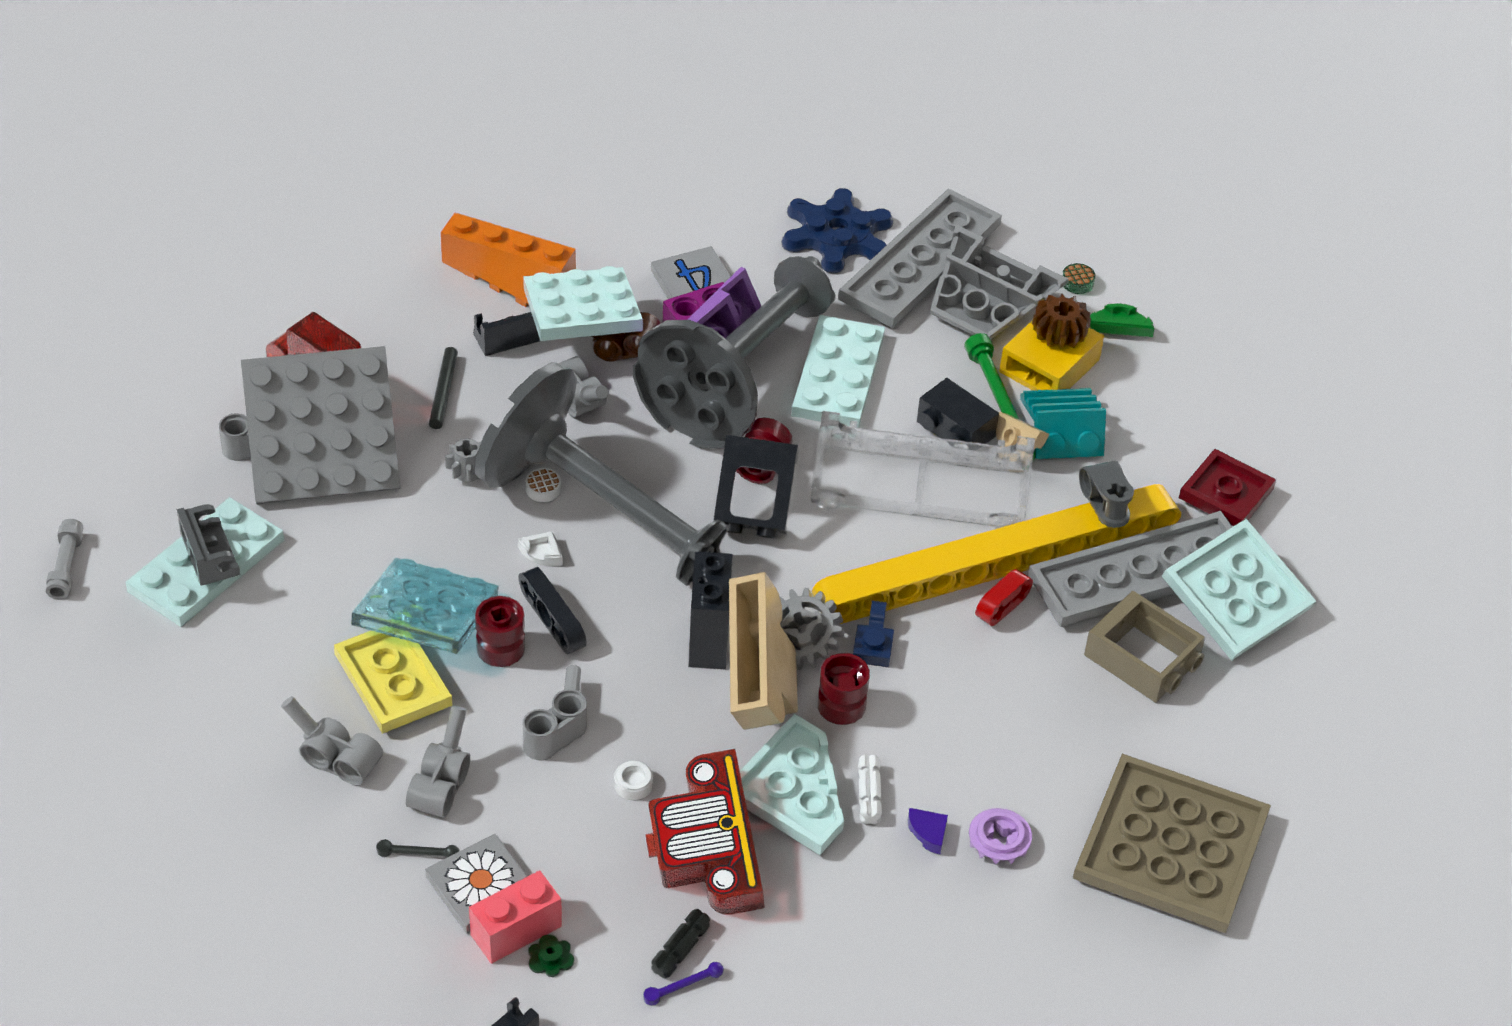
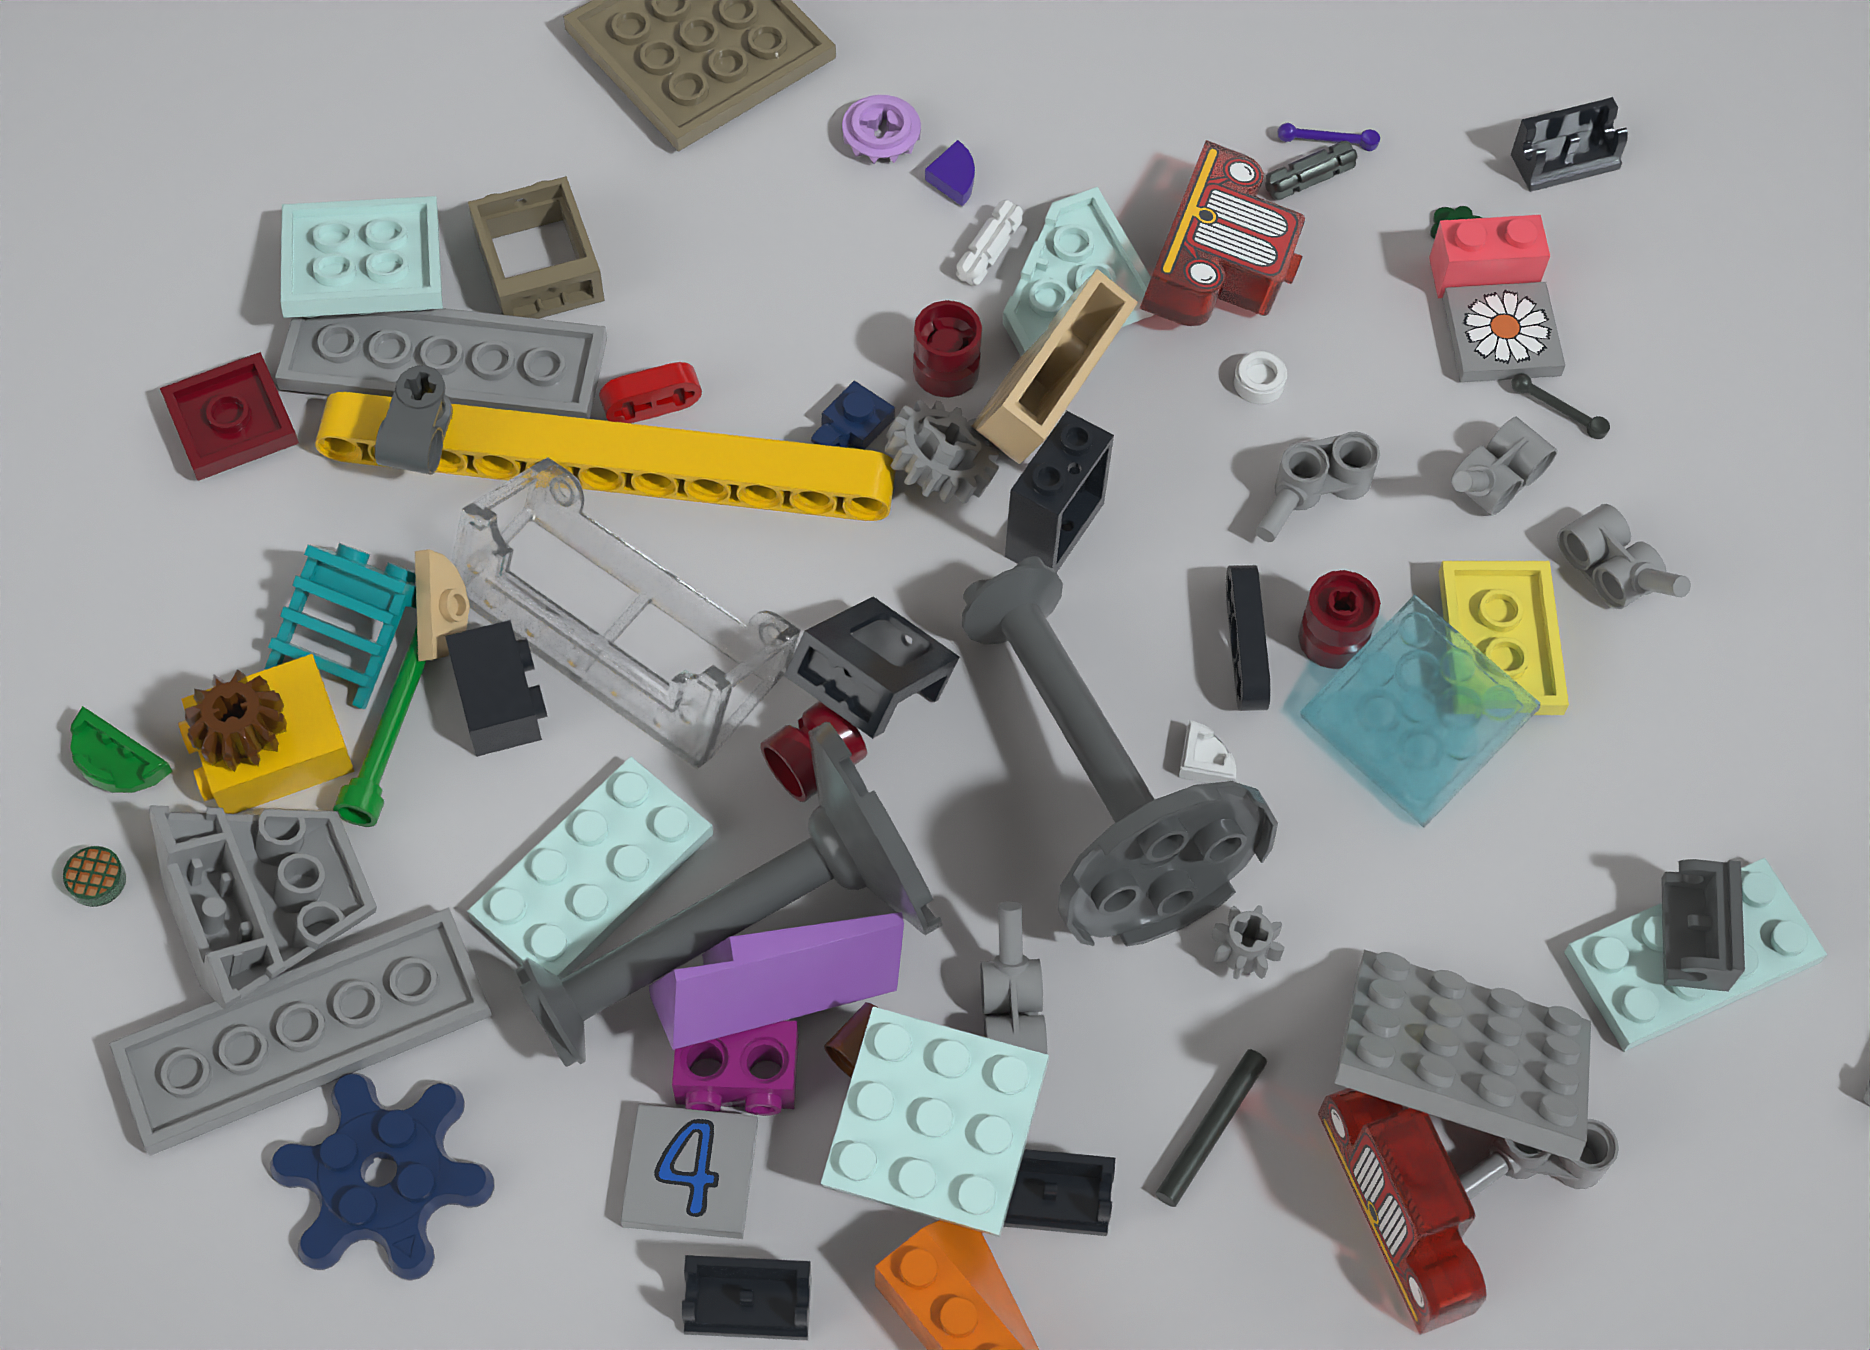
camera: 150 degrees left, 15 degrees up
(633, 244) = (747, 1297): none -> black hinge

